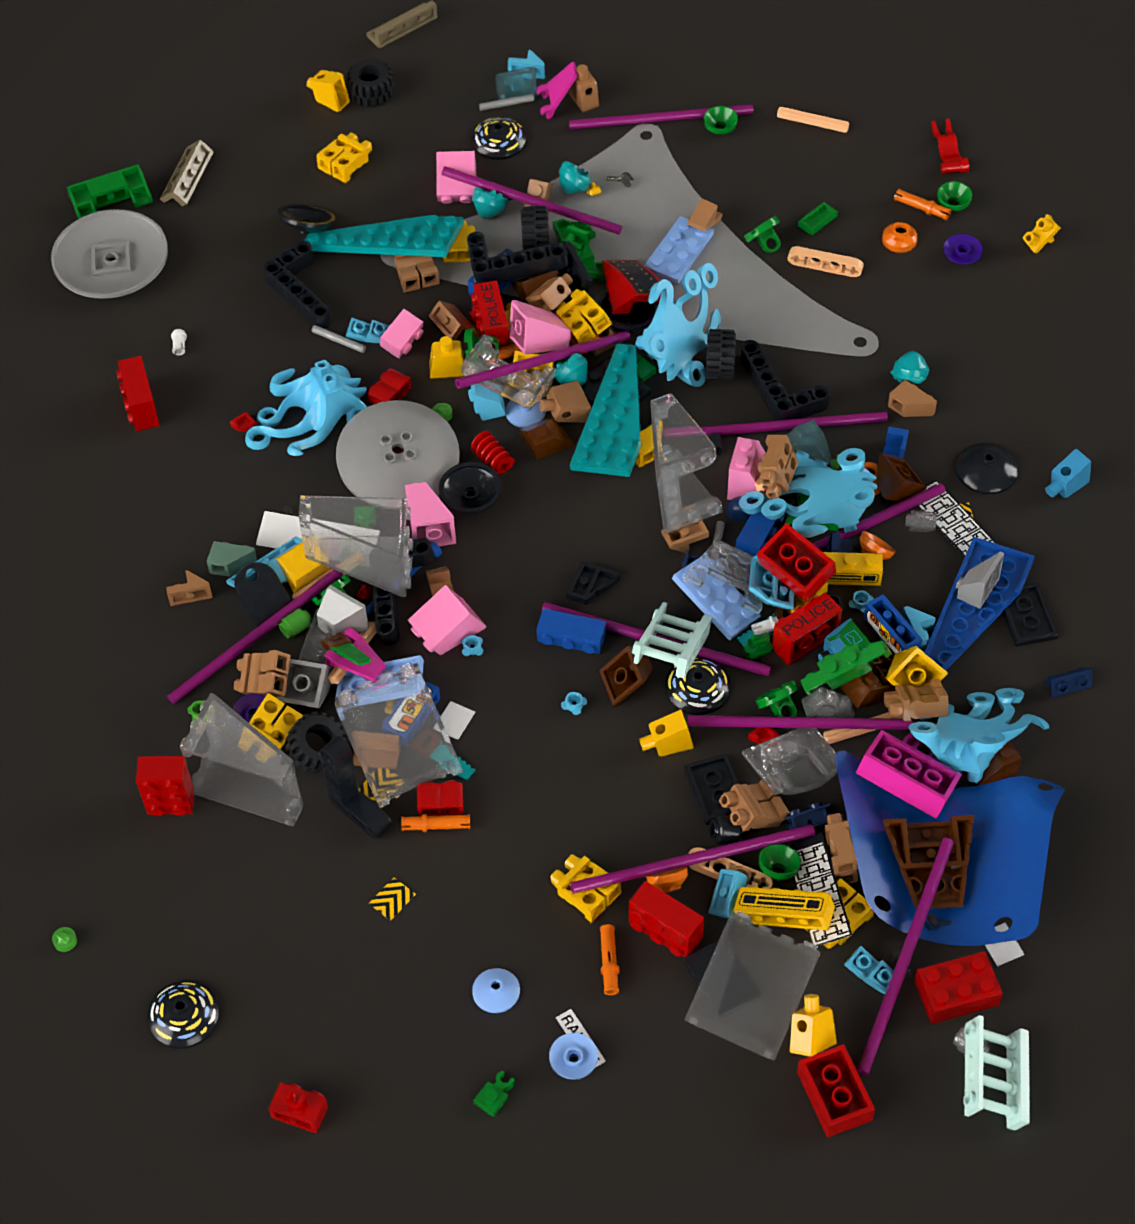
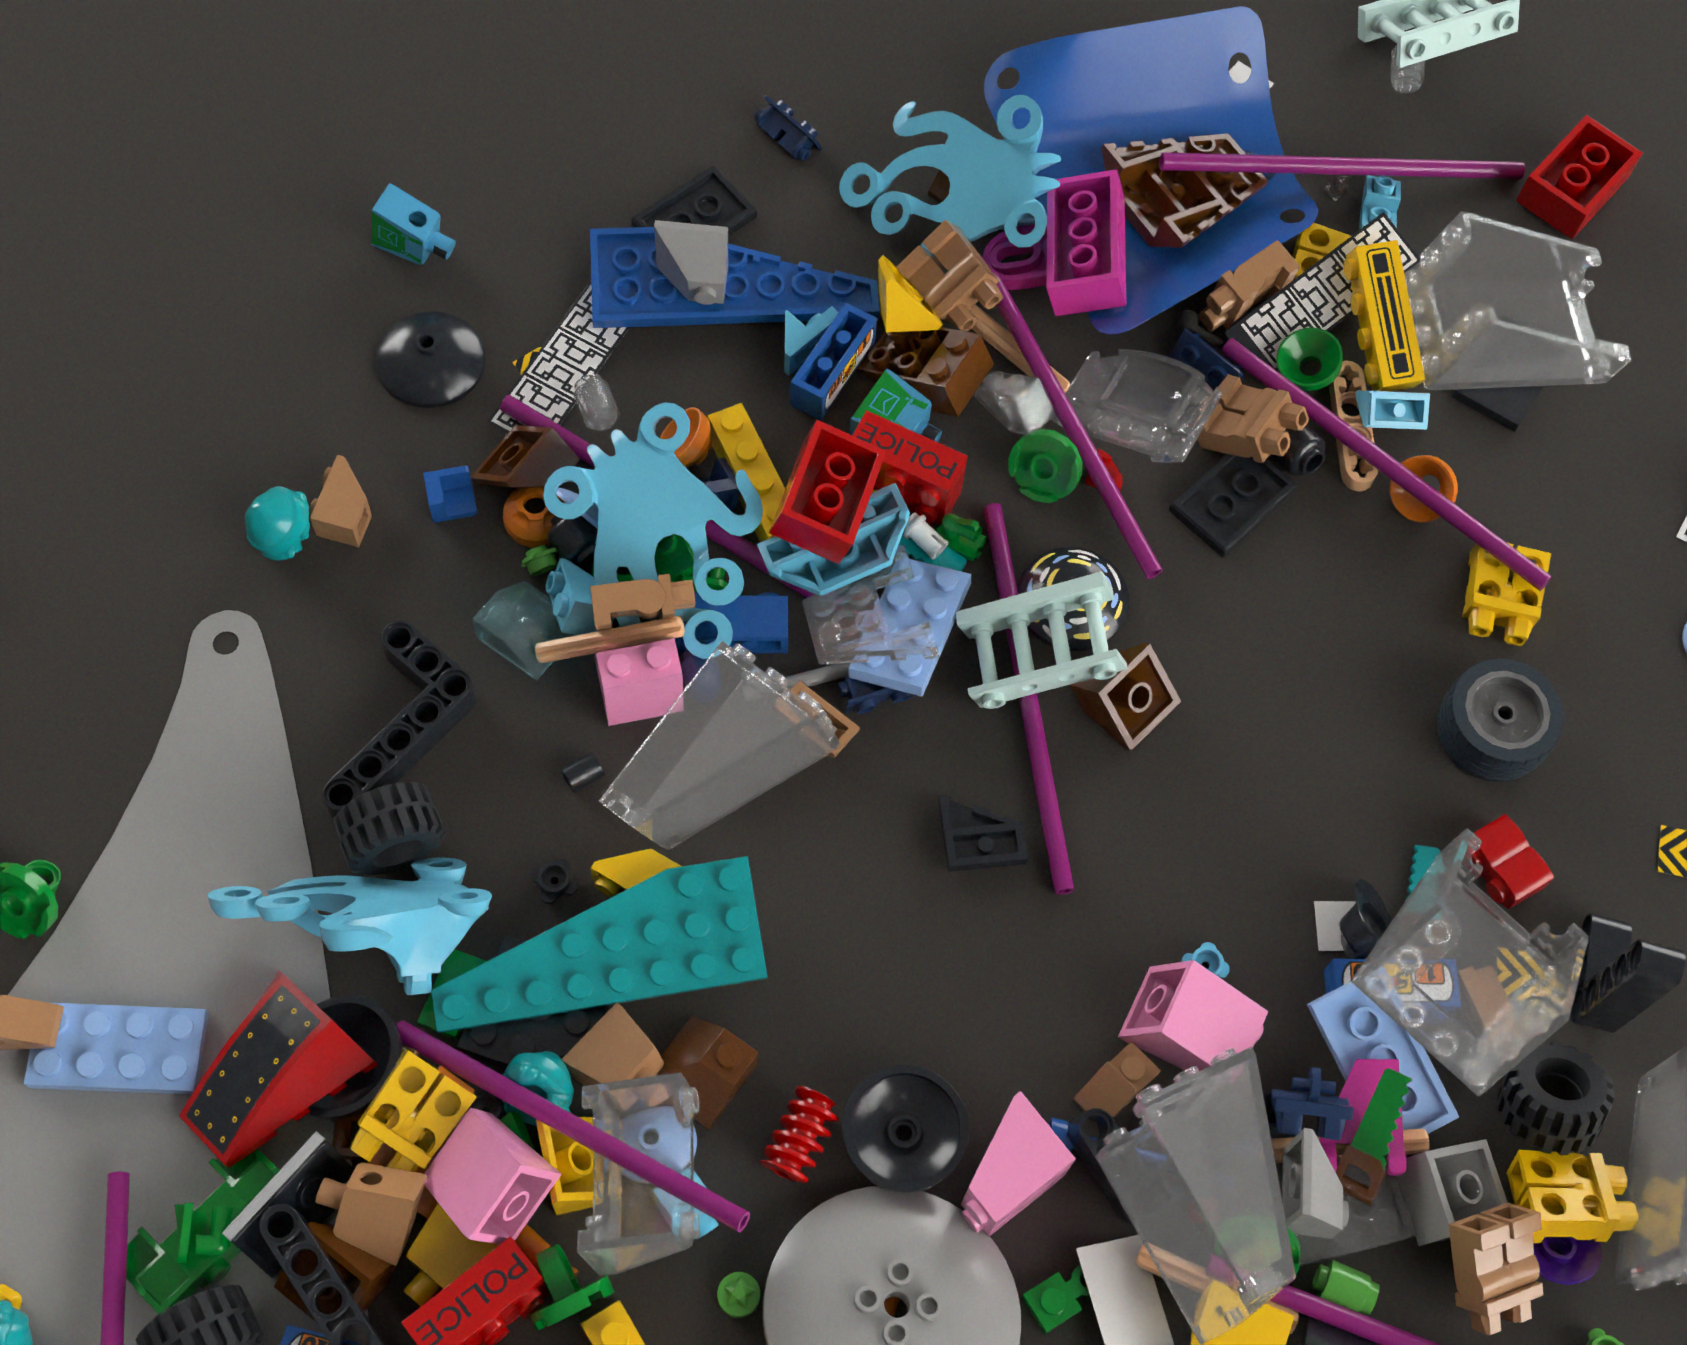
camera: 125 degrees left, 10 degrees up
(376, 630) = (1291, 1106): none -> dark blue hips
(435, 822) = (1564, 876): orange pin -> none
(453, 718) = (1363, 922): none -> black piece
(513, 834) = (1500, 720): none -> wheel
(571, 631) = (1094, 818): blue brick -> none
(574, 697) = (1218, 746): medium azure plate -> none
(610, 968) = (1596, 507): orange pin -> none
(665, 920) = (1498, 454): red brick -> none
(668, 735) = (1202, 583): yellow torso -> none
(792, 423) = (493, 699): magenta piece -> none
(812, 1028) = (1534, 212): yellow torso -> none
(825, 261) = (51, 766): light nougat beam -> none
(845, 665) = (969, 367): green bracket -> none
(860, 596) = (788, 425): medium azure plate -> none
(958, 987) = (1345, 101): red brick -> none

